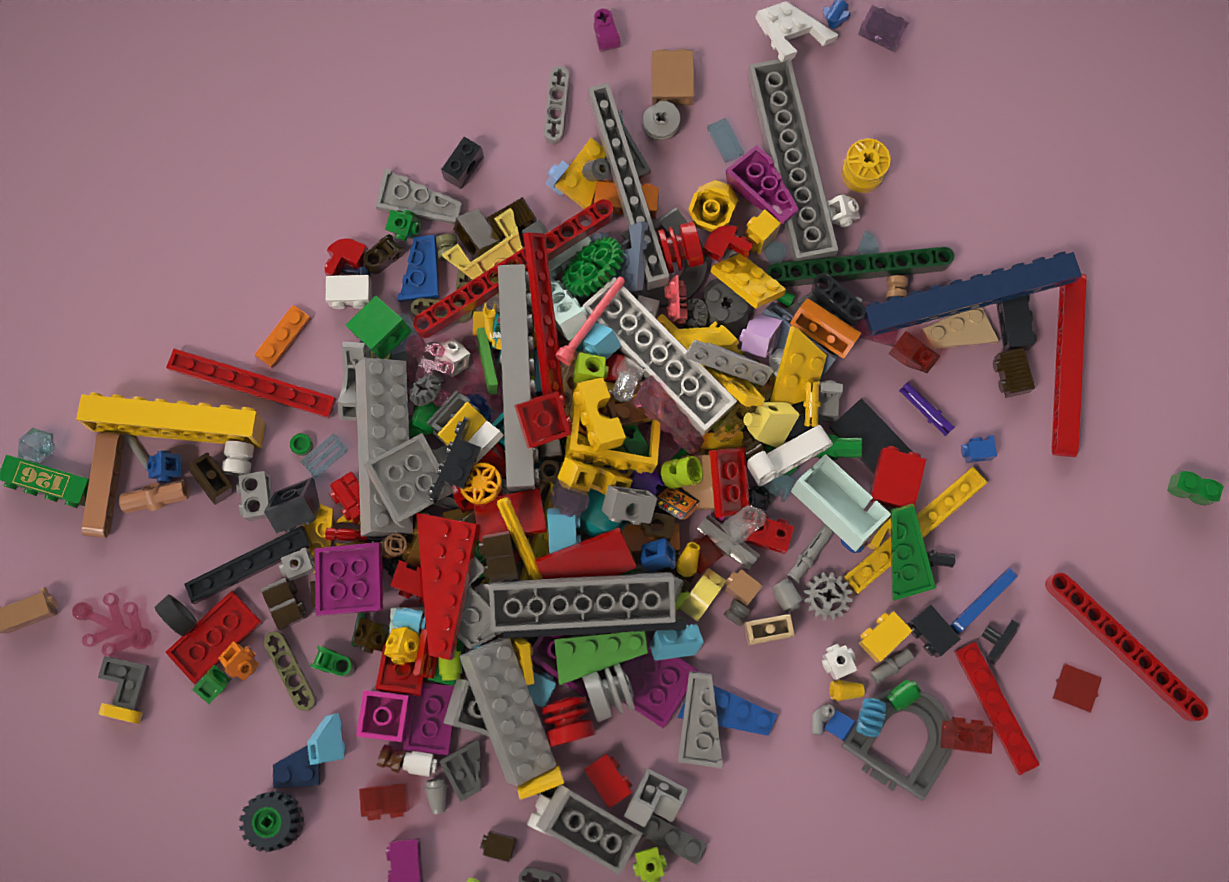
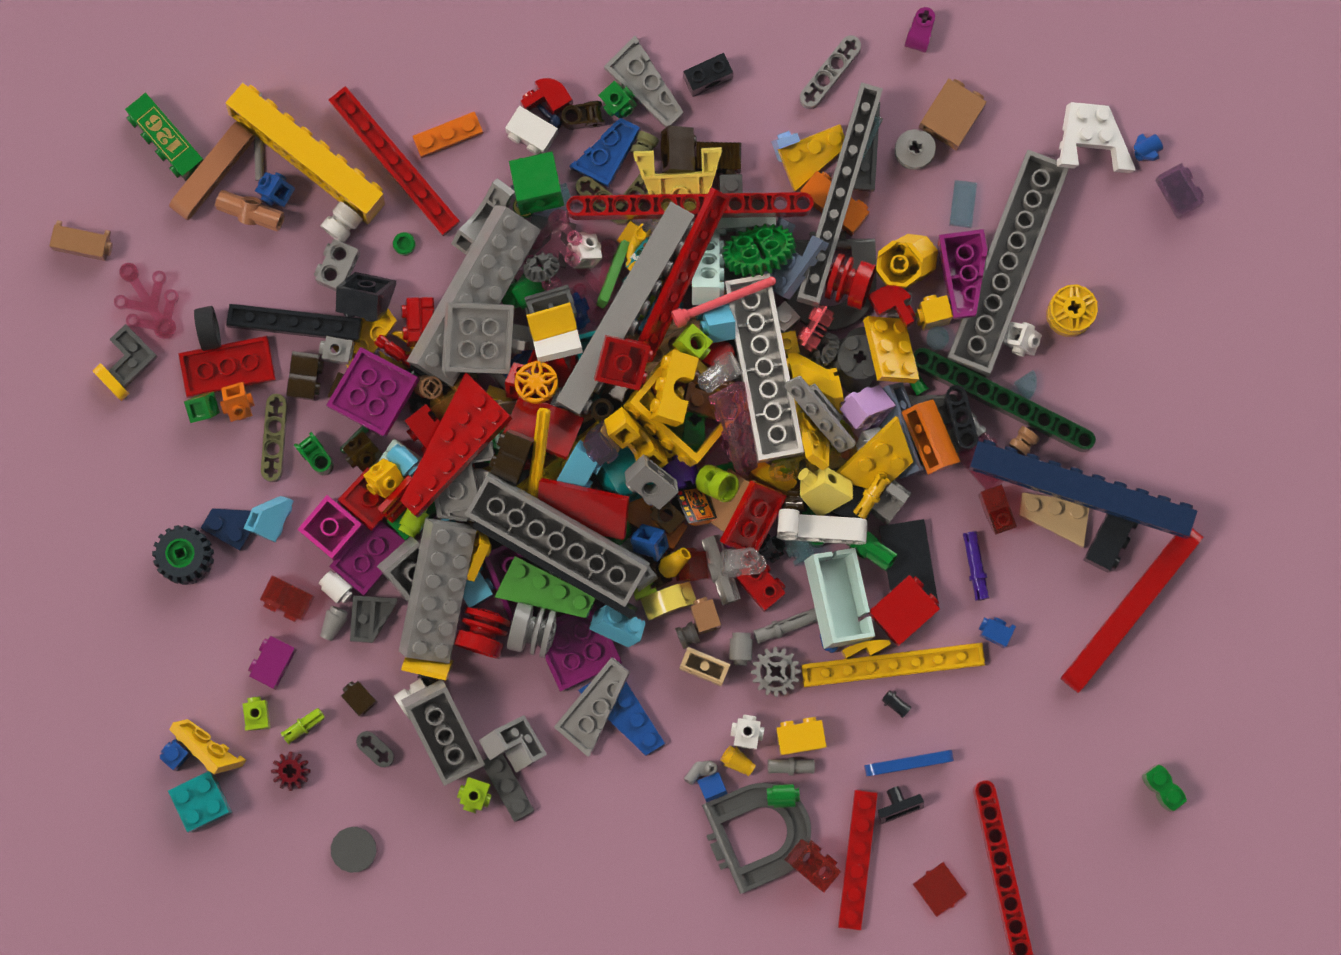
camera: 30 degrees right, 5 degrees up
(35, 445) = (175, 100): clear light blue brick -> none
(210, 478) = (308, 226): dark brown brick -> none
(318, 450) = (438, 272): clear light blue tile -> none
(391, 758) = (314, 567): reddish brown wheel -> none
(458, 463) = (527, 353): black bracket -> none
(596, 170) = (822, 160): dark grey brick -> none
(608, 780) = (485, 704): red brick -> none
(871, 717) = (741, 795): dark azure gear -> none
(909, 559) = (868, 683): green wing -> none
(933, 631) = (846, 760): black brick -> none
(1013, 373) = (1075, 584): dark brown brick -> none

